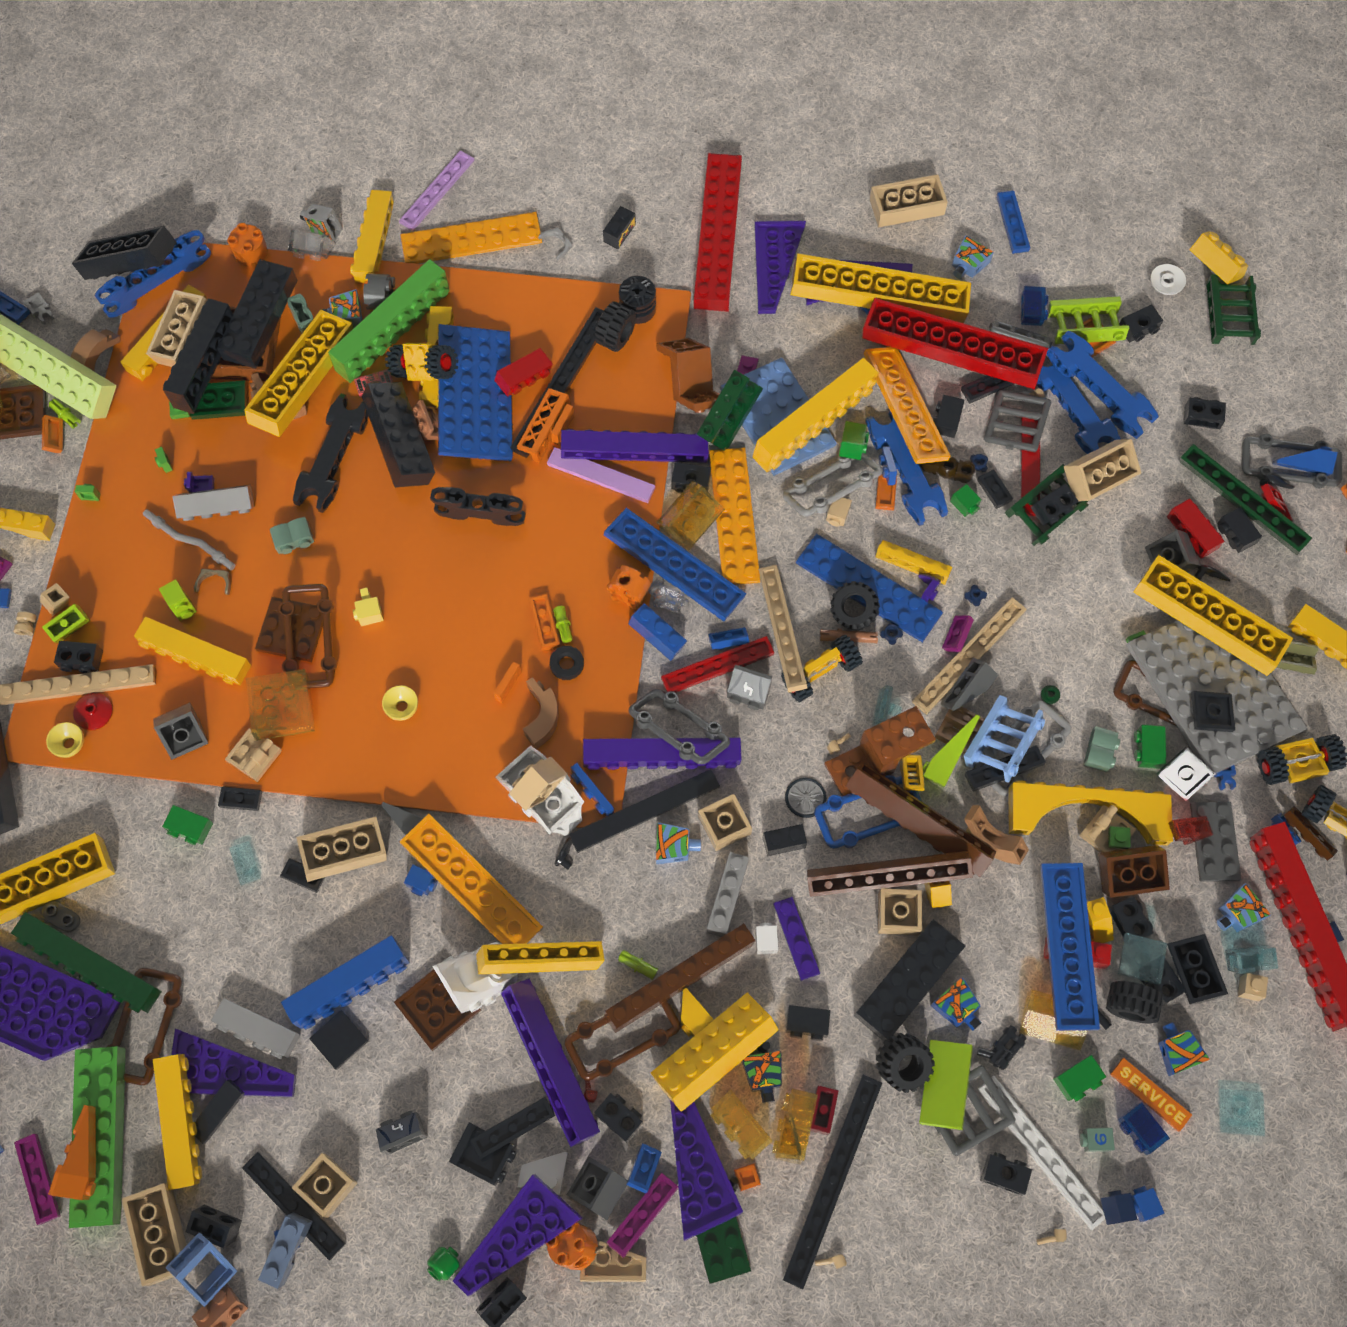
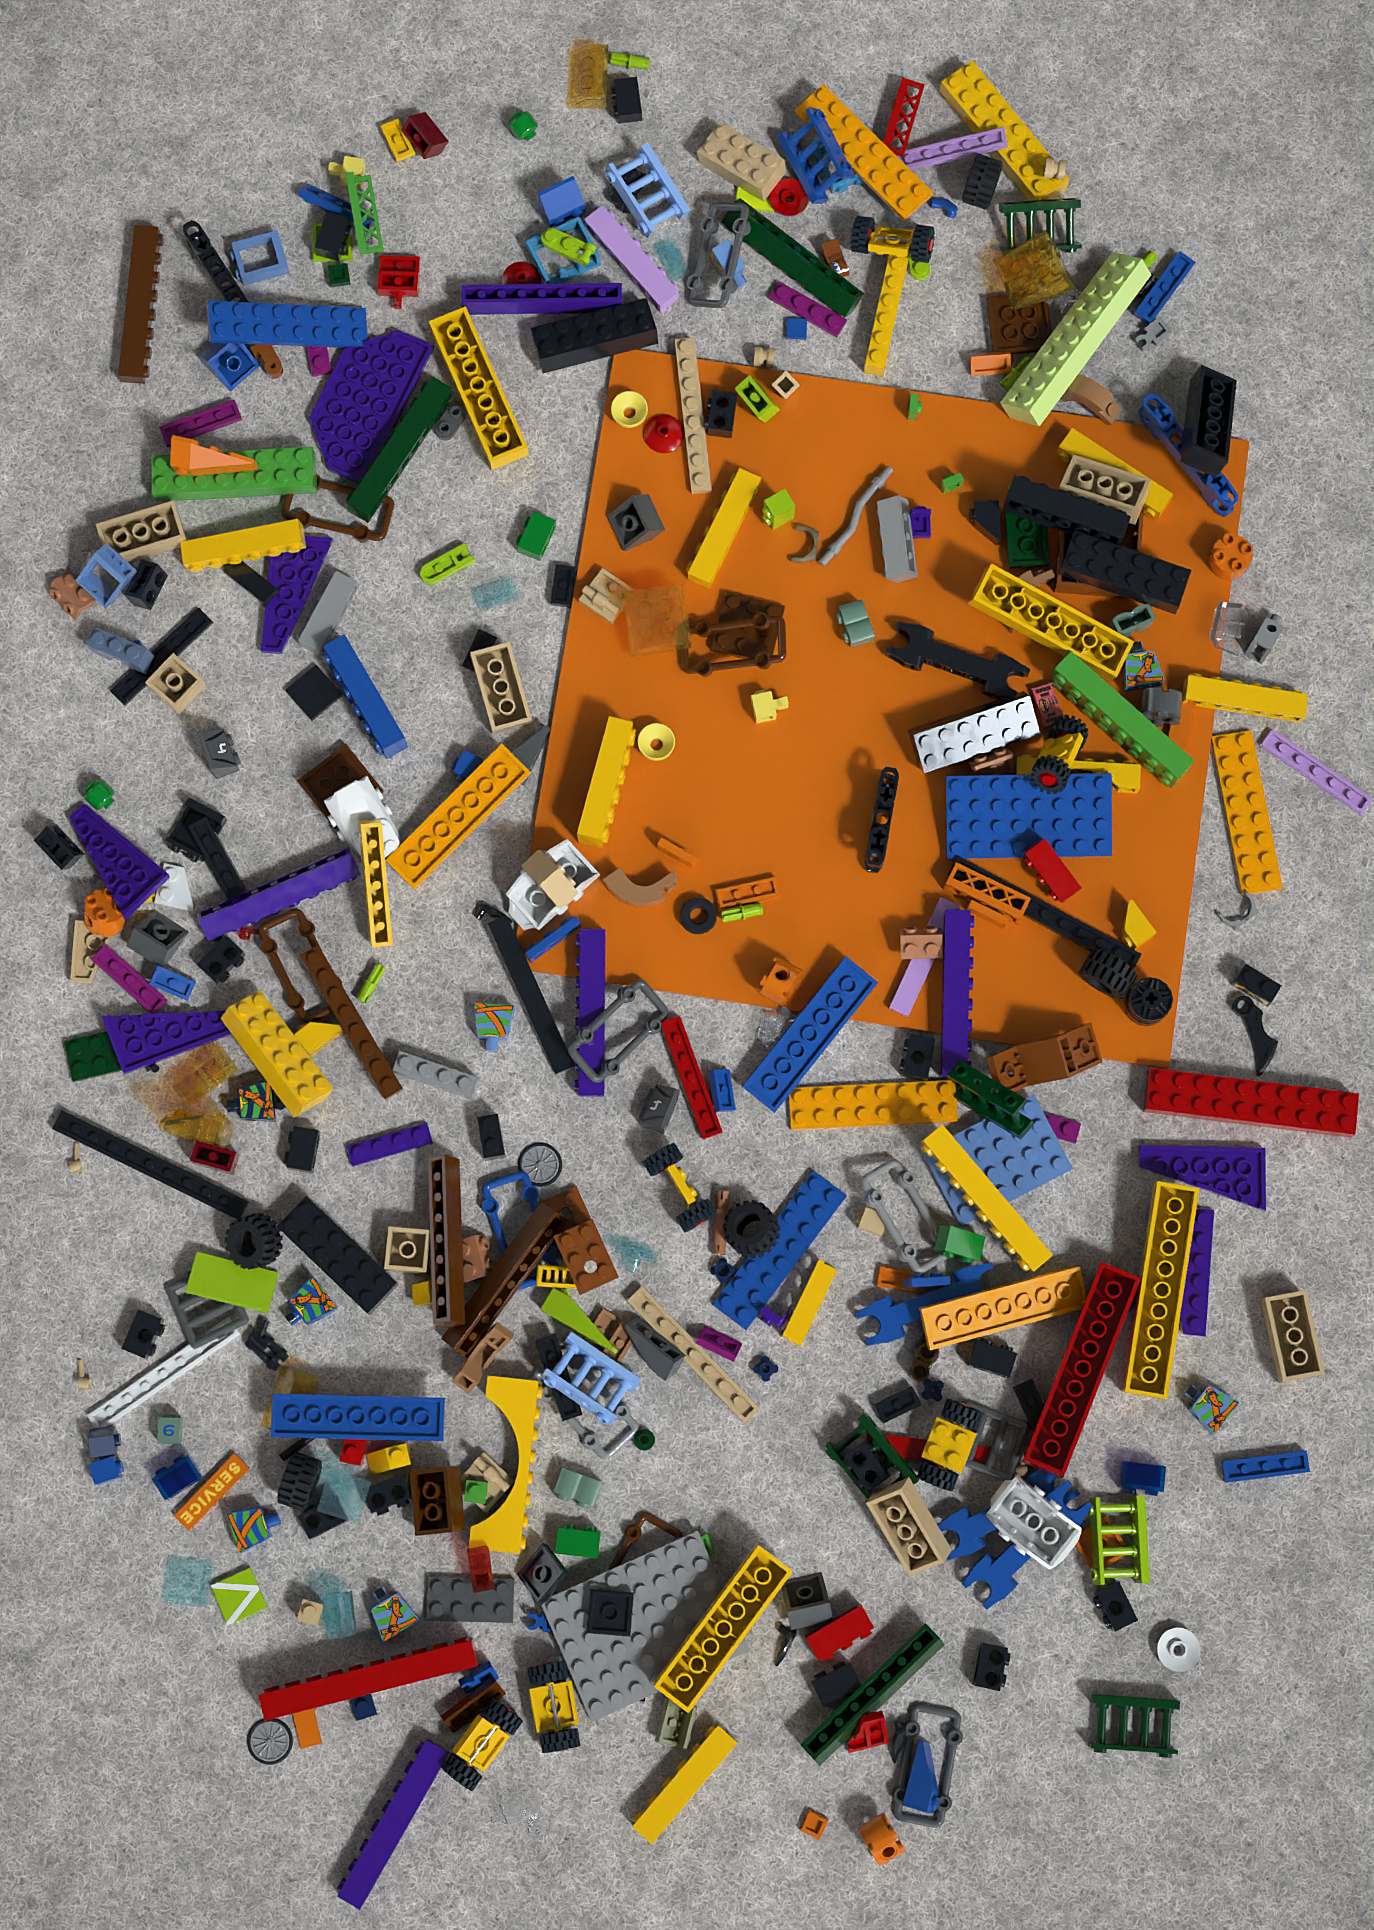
camera: 90 degrees right, 10 degrees up
(201, 430) = (987, 519): none -> black slope
(212, 912) = (446, 565): none -> lime plate
(439, 744) = (605, 782): none -> yellow brick
(571, 312) = (1136, 927): none -> yellow slope
(589, 473) = (920, 942): none -> nougat bracket
(657, 632) = (728, 1012): blue brick -> none
(666, 226) = (1263, 1044): none -> black piece
(690, 515) = (869, 1053): clear yellow slope -> none
(724, 822) = (512, 1075): tan brick -> none
(747, 1177) = (159, 1082): orange tile -> none
(766, 939) = (389, 1113): white brick -> none
(782, 629) = (725, 1145): tan plate -> none
(834, 744) = (595, 1197): tan hand -> none
(903, 847) = (476, 1258): none -> nougat bracket
(966, 501) = (881, 1369): green brick -> none
(1020, 334) = (1078, 1455): dark grey bar -> none
(1028, 442) = (949, 1444): none -> plate
(1080, 1078) = (230, 1420): green brick -> none
(1088, 372) = (1033, 1522): none -> white slope
(1197, 969) = (329, 1551): black slope -> none
(1219, 257) = (1201, 1713): yellow slope -> none
(1246, 1060) = (239, 1596): none -> lime tile

